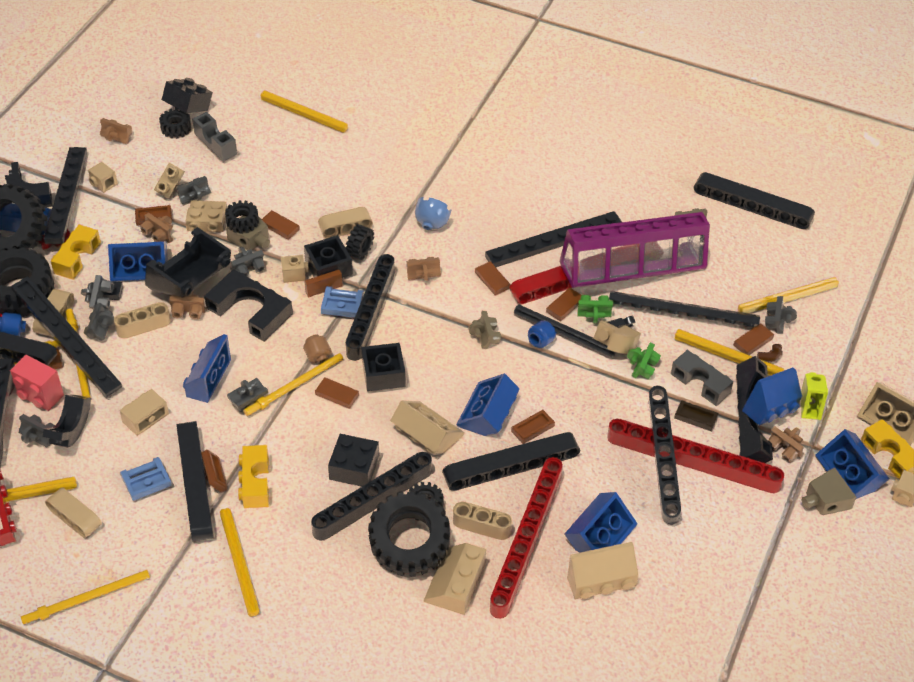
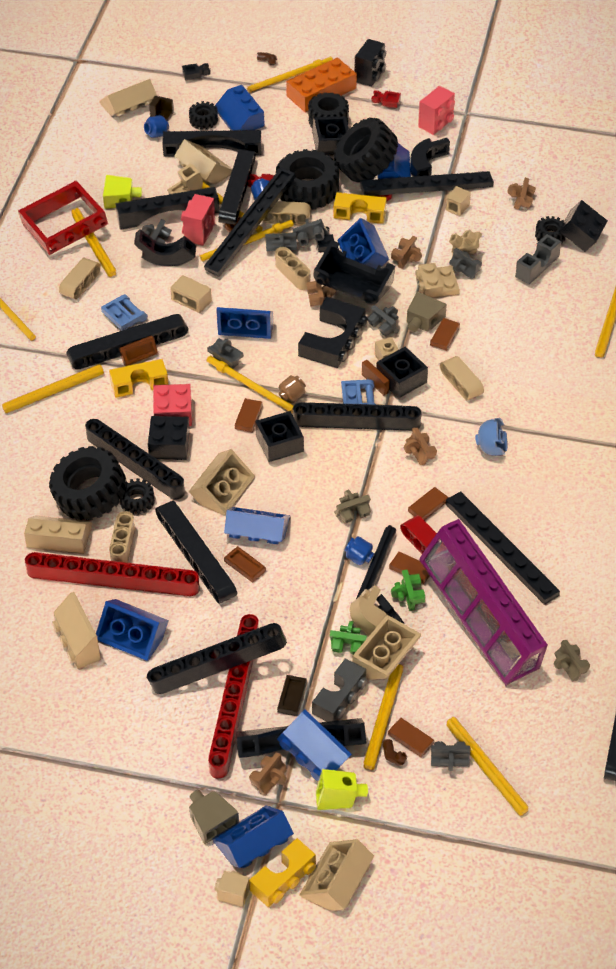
camera: 80 degrees right, 0 degrees up
(157, 211) = (428, 247): dark orange tile -> none
(241, 209) = (425, 303): black tyre -> none
(308, 450) = (173, 401): none -> coral brick
(360, 241) = (434, 382): black tyre -> none
(667, 331) = (385, 648): none -> tan slope
(691, 309) = (434, 669): black plate -> none

